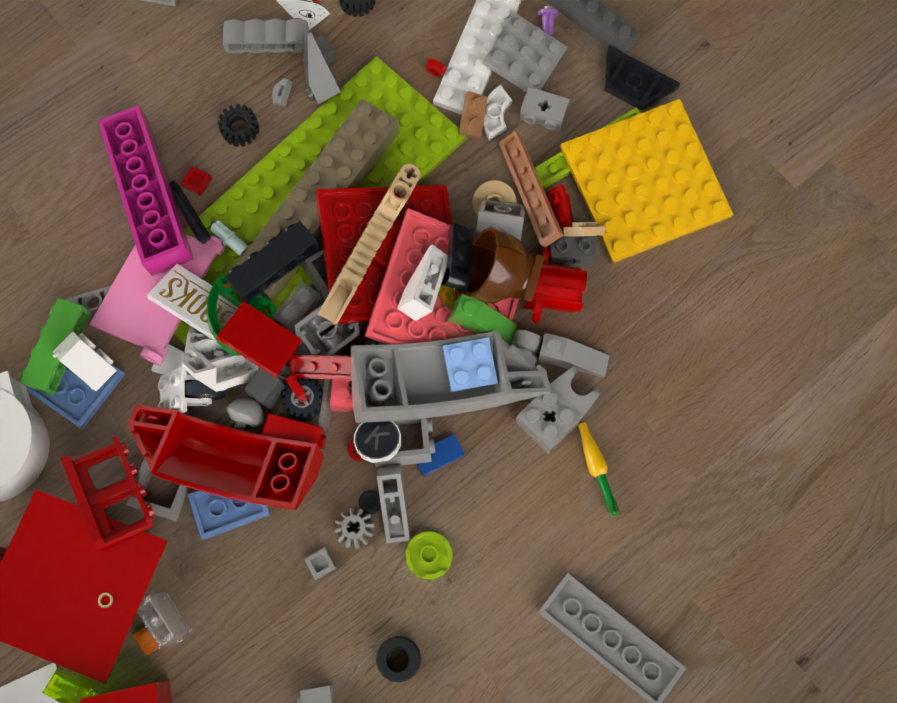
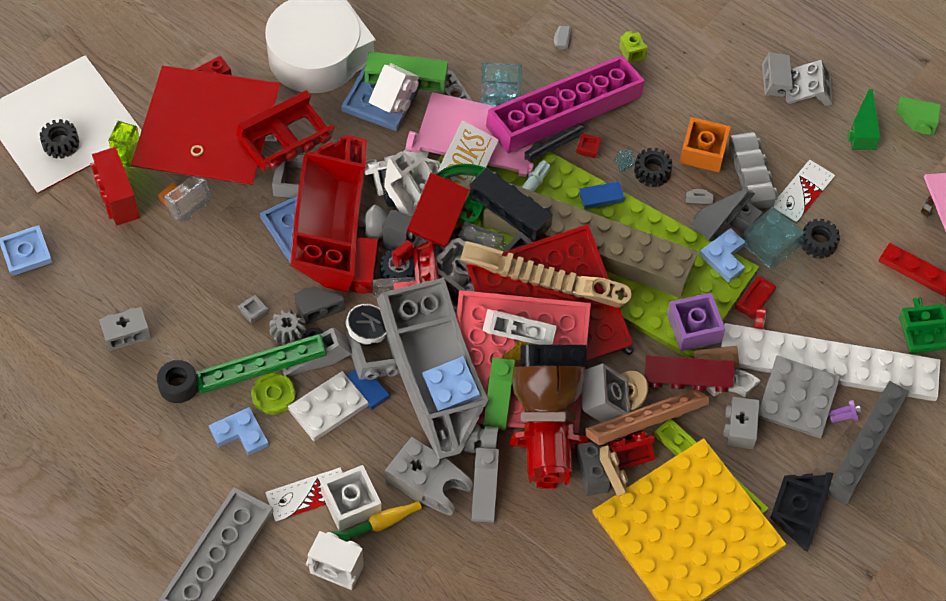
camera: 75 degrees right, 15 degrees down
(48, 180) = (562, 37): none -> light grey piece
(83, 112) = (630, 44): none -> lime brick
(101, 250) = (500, 83): none -> clear light blue brick
(217, 150) = (624, 159): none -> clear light blue plate
(227, 69) = (705, 144): none -> orange brick
(264, 179) = (601, 195): none -> blue tile
(330, 493) = (317, 303): none -> dark grey slope
(349, 35) = (772, 238): none -> clear light blue brick
(359, 85) = (720, 255): none -> light blue plate
(397, 563) = (261, 363): none -> green tile
(407, 68) = (755, 297): none -> red tile
(437, 120) = (696, 321): none -> medium lavender brick
(454, 499) = (328, 406): none -> white plate
(462, 593) = (241, 426): none -> light blue plate
(487, 140) = (689, 372): none -> dark red brick
(551, 535) = (299, 496): none -> white sticker
(572, 489) = (350, 497): none -> white brick
(642, 515) = (335, 560): none -> white brick

